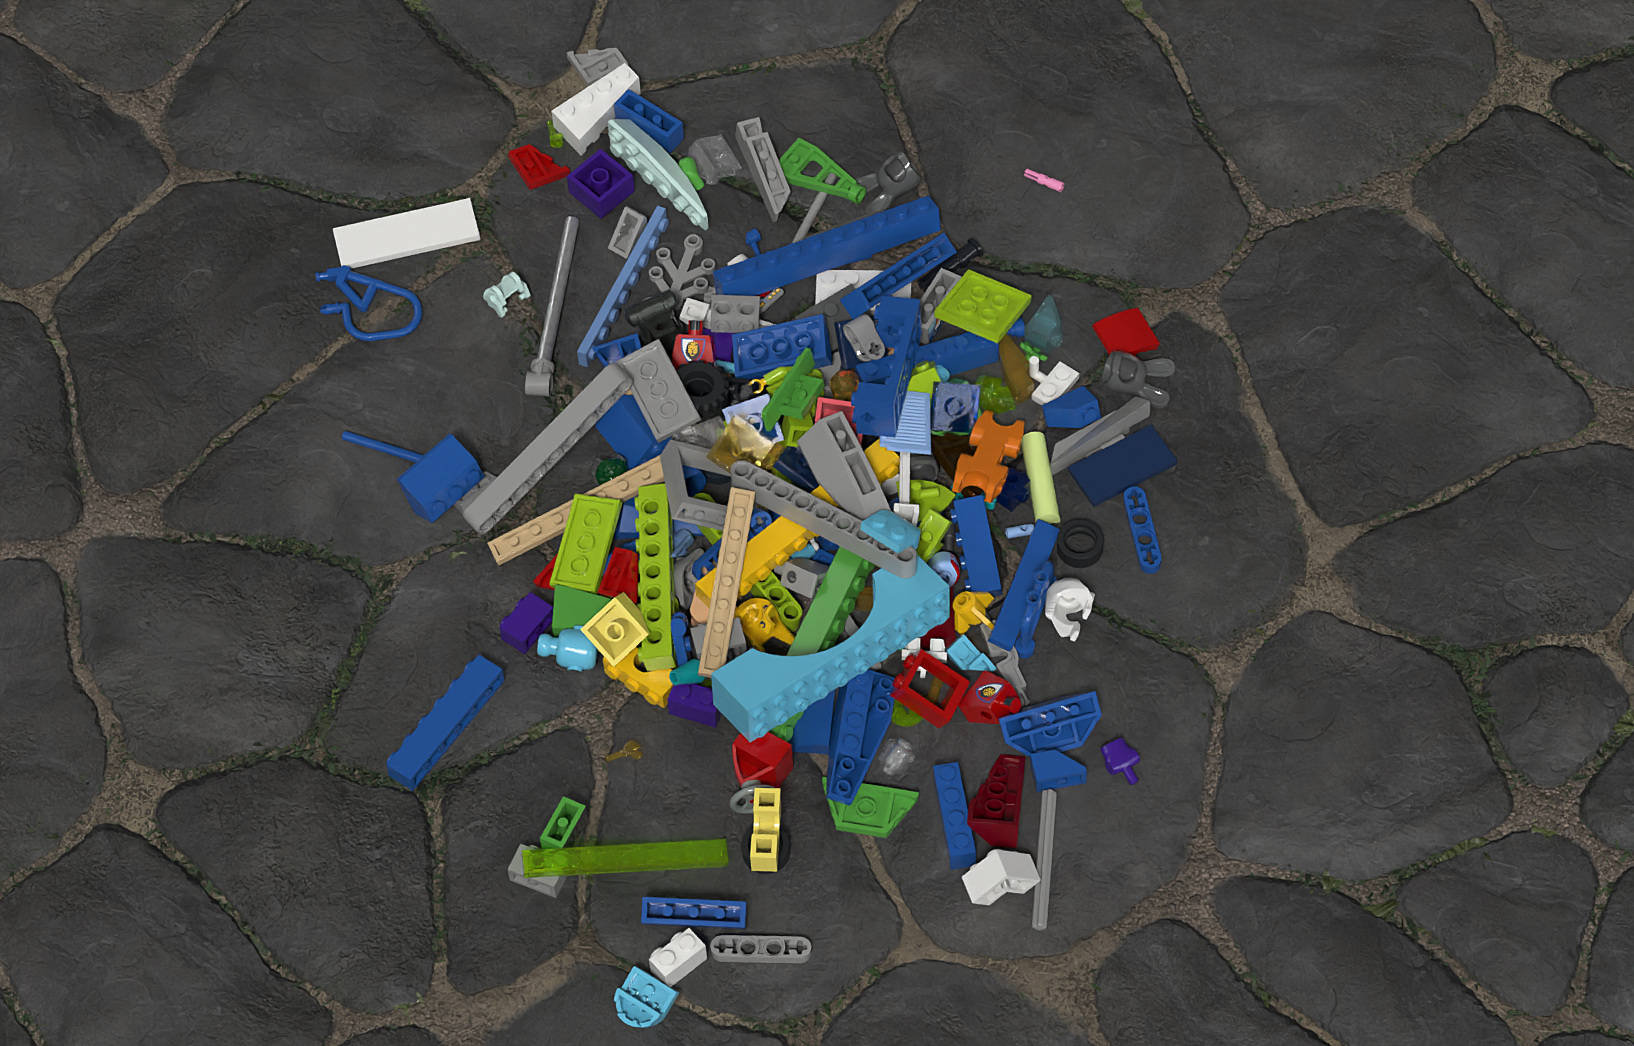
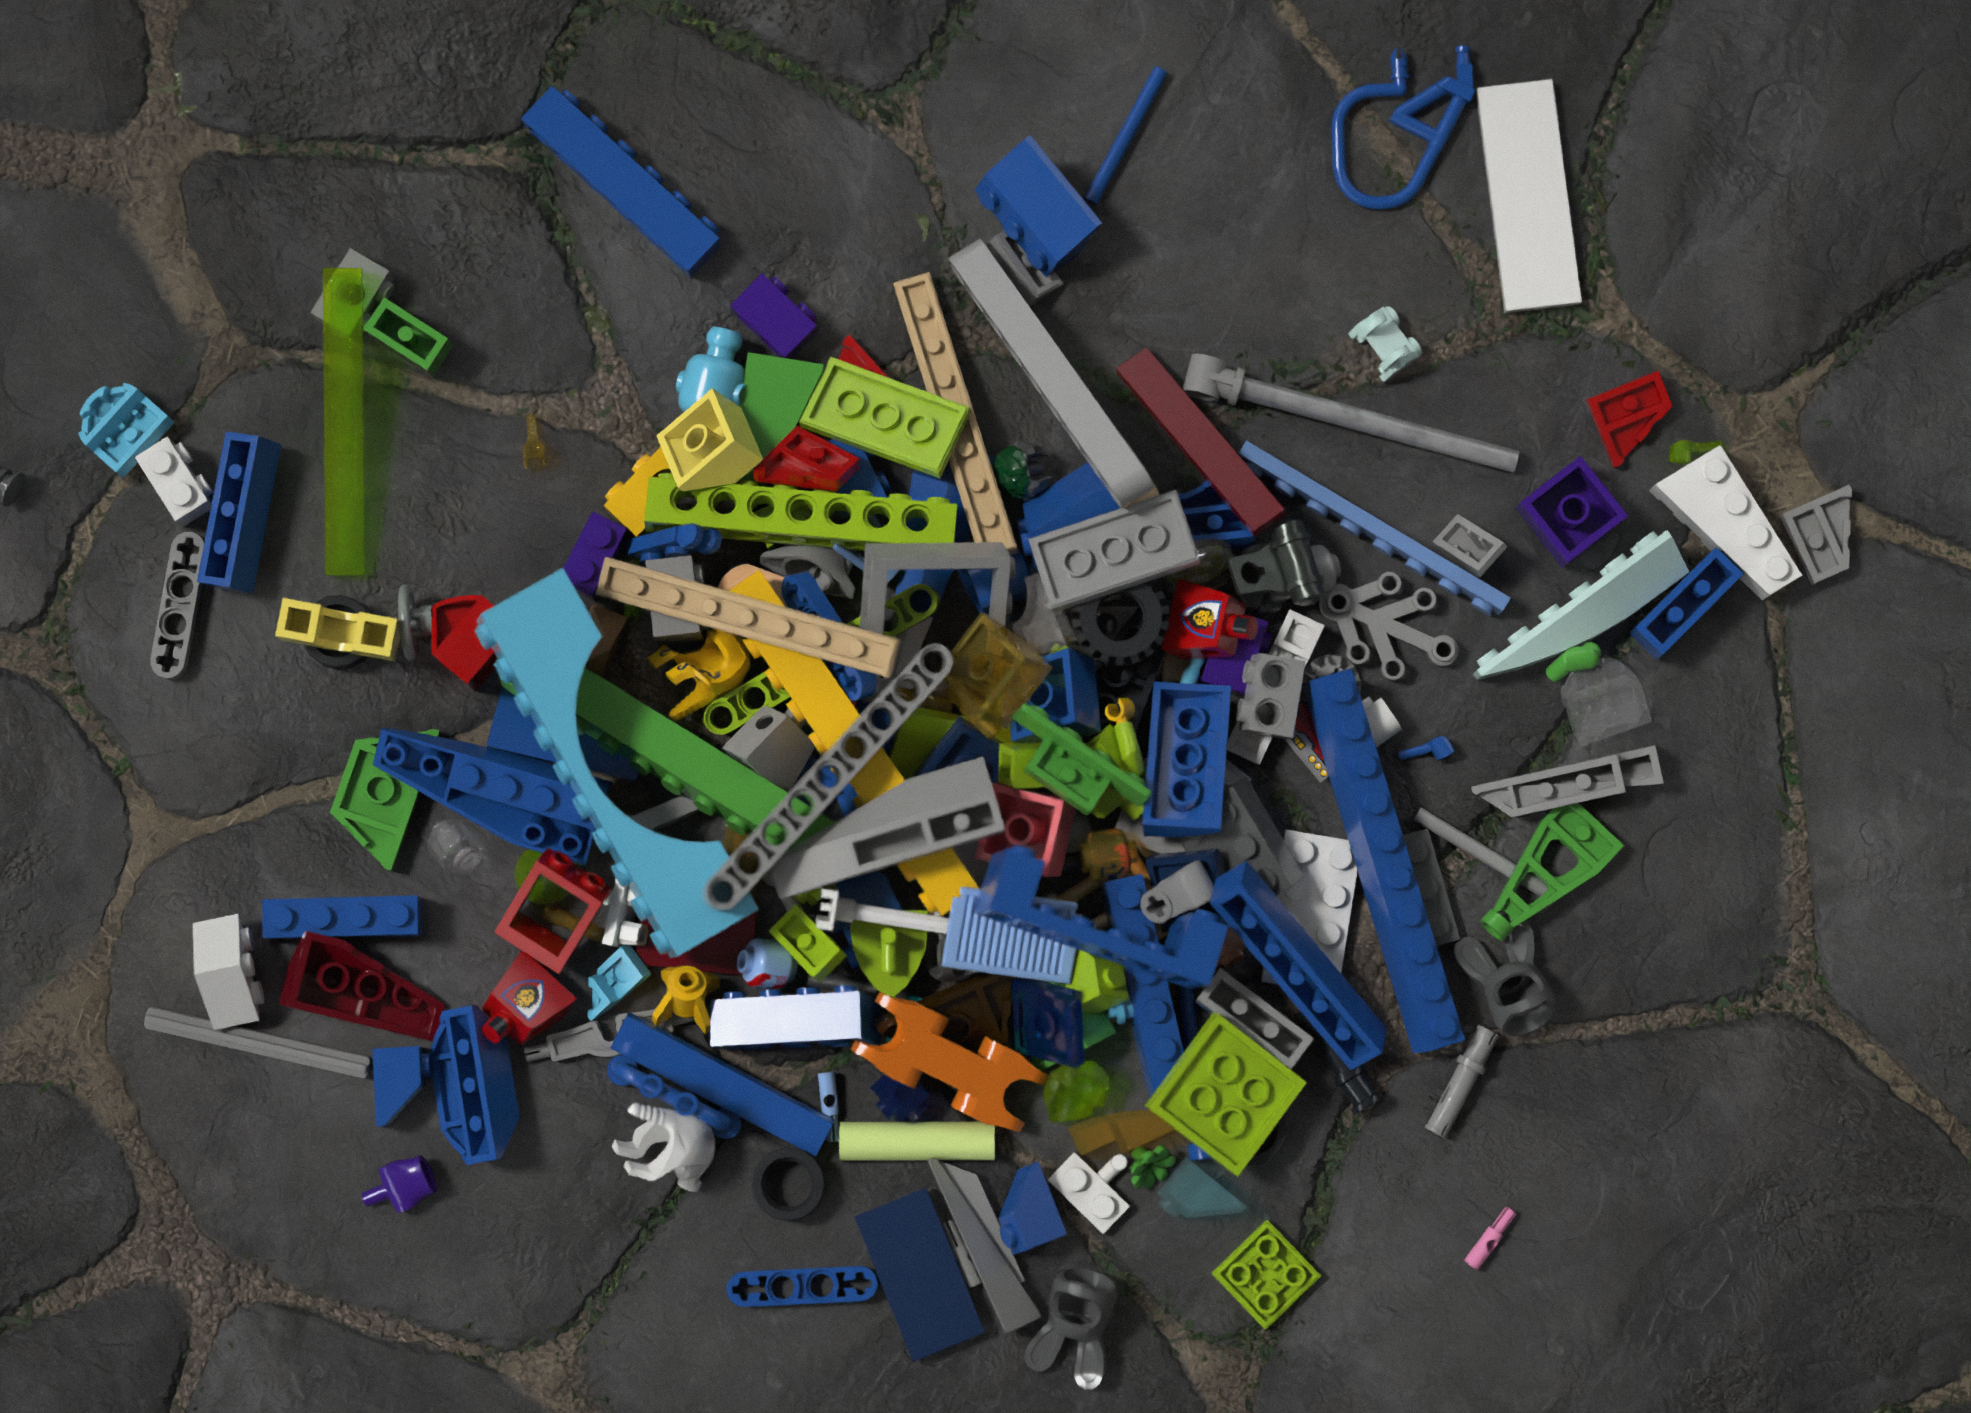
camera: 95 degrees right, 25 degrees up
(581, 373) = (1200, 442): none -> dark red tile
(686, 673) = (621, 542): teal cone -> none
(891, 530) = (772, 879): medium azure slope -> none
(951, 202) = (1462, 1081): none -> light grey pin
(1087, 289) = (1265, 1274): none -> lime tile
(1126, 332) = (1165, 1321): red slope -> none

